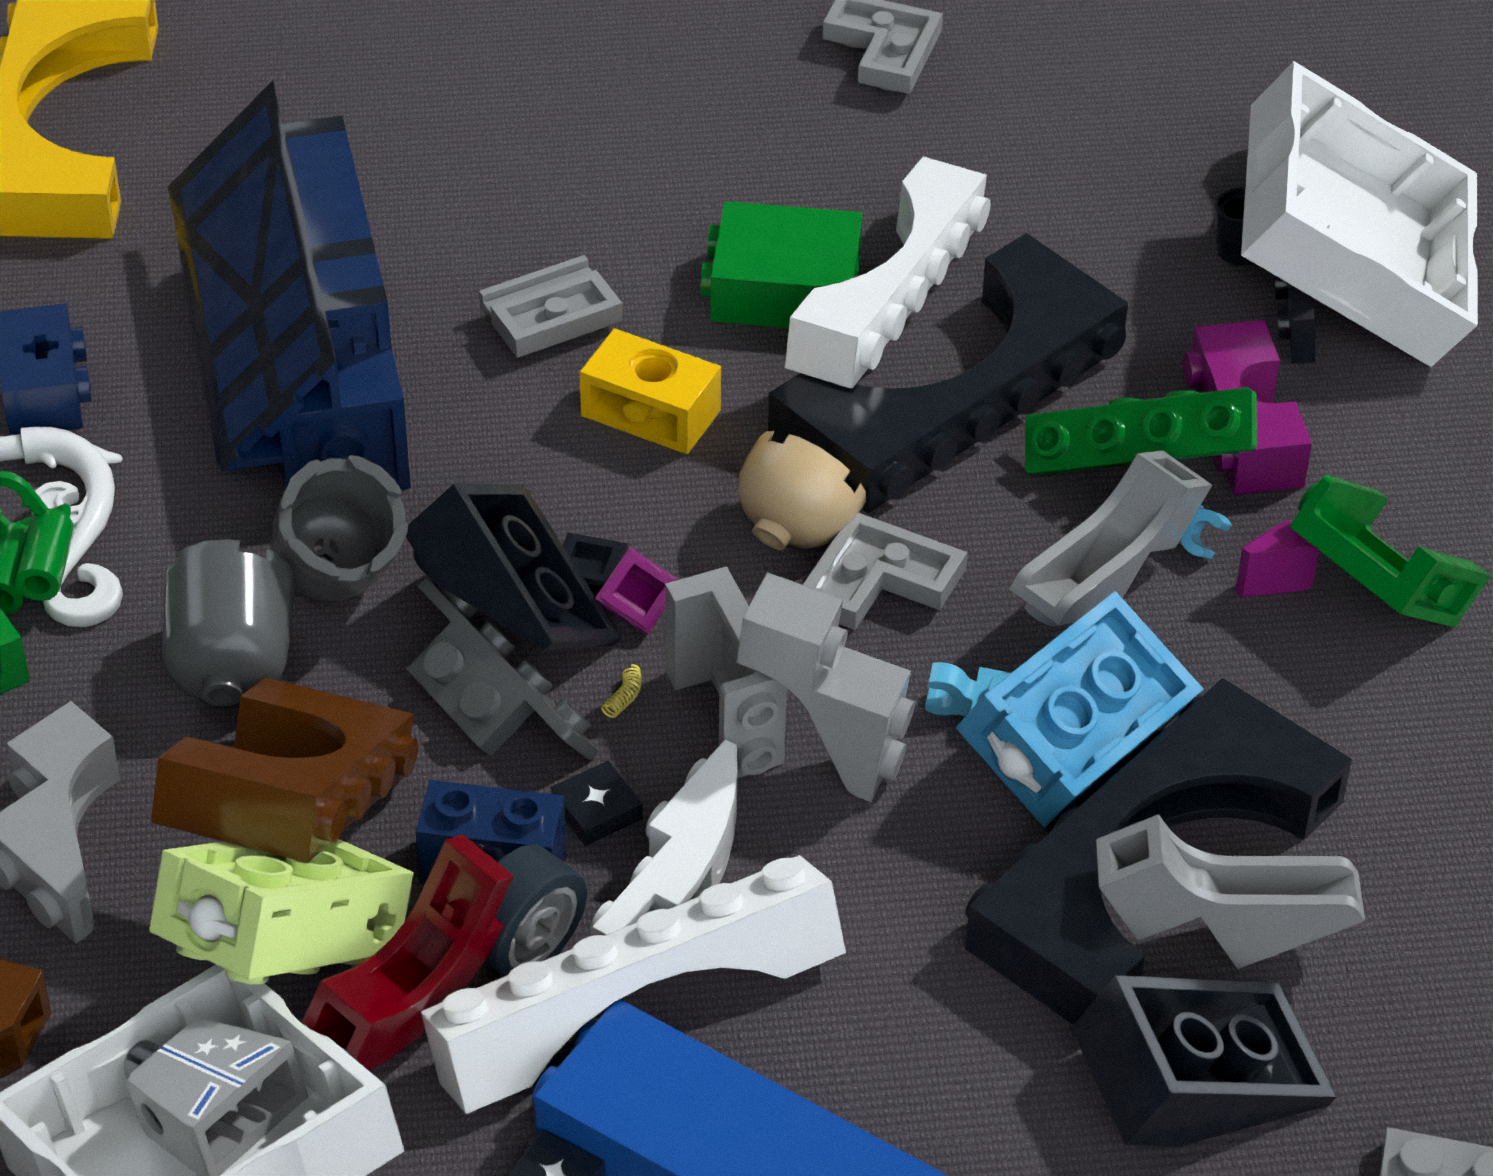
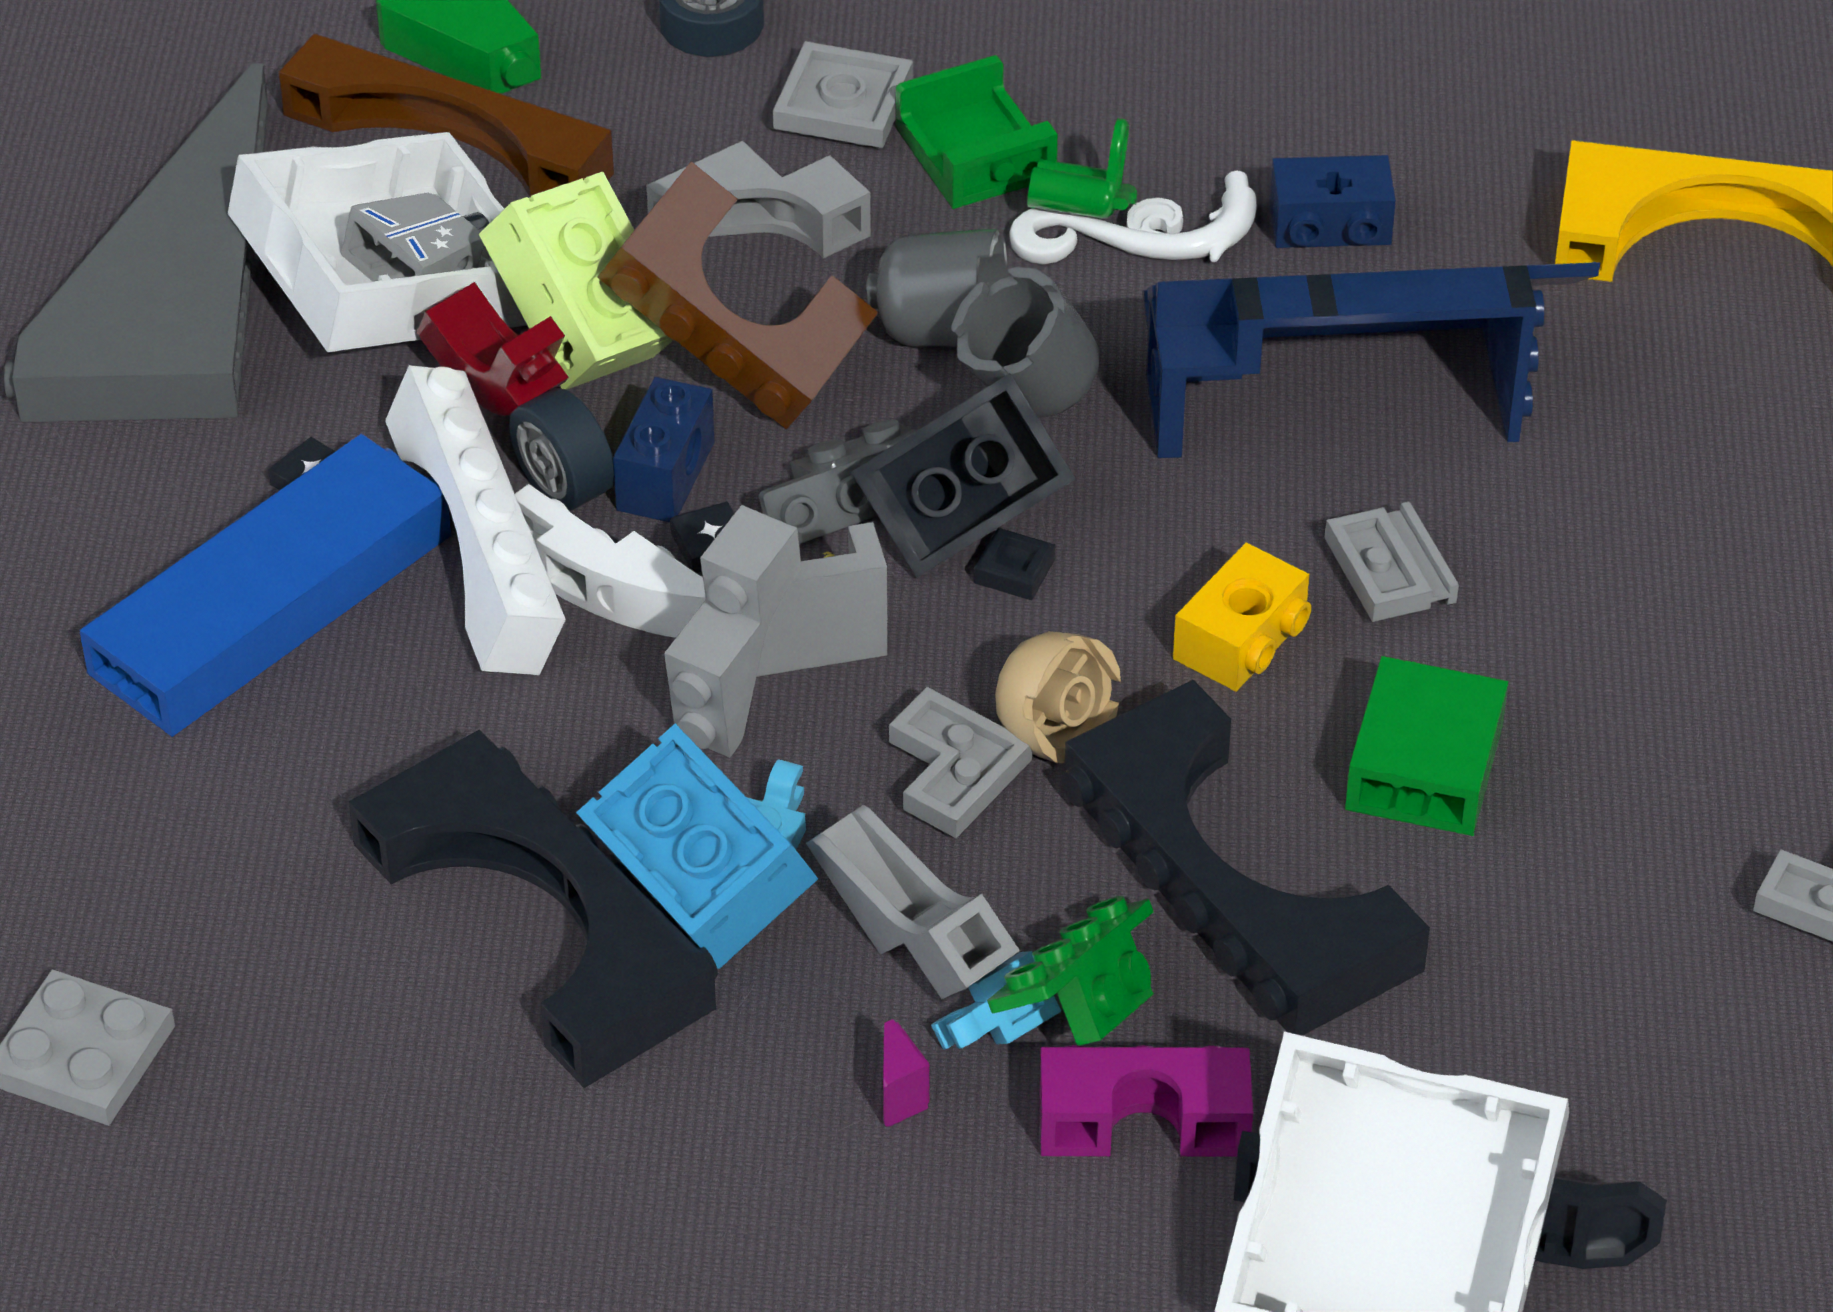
camera: 100 degrees right, 0 degrees up
(636, 591) = (964, 584): magenta slope -> none
(848, 324) = (1484, 870): white arch -> none
(1197, 1058) = (284, 887): black slope -> none
(1246, 901) = (437, 905): light grey arch -> none
(1428, 586) = (862, 1139): green panel -> none

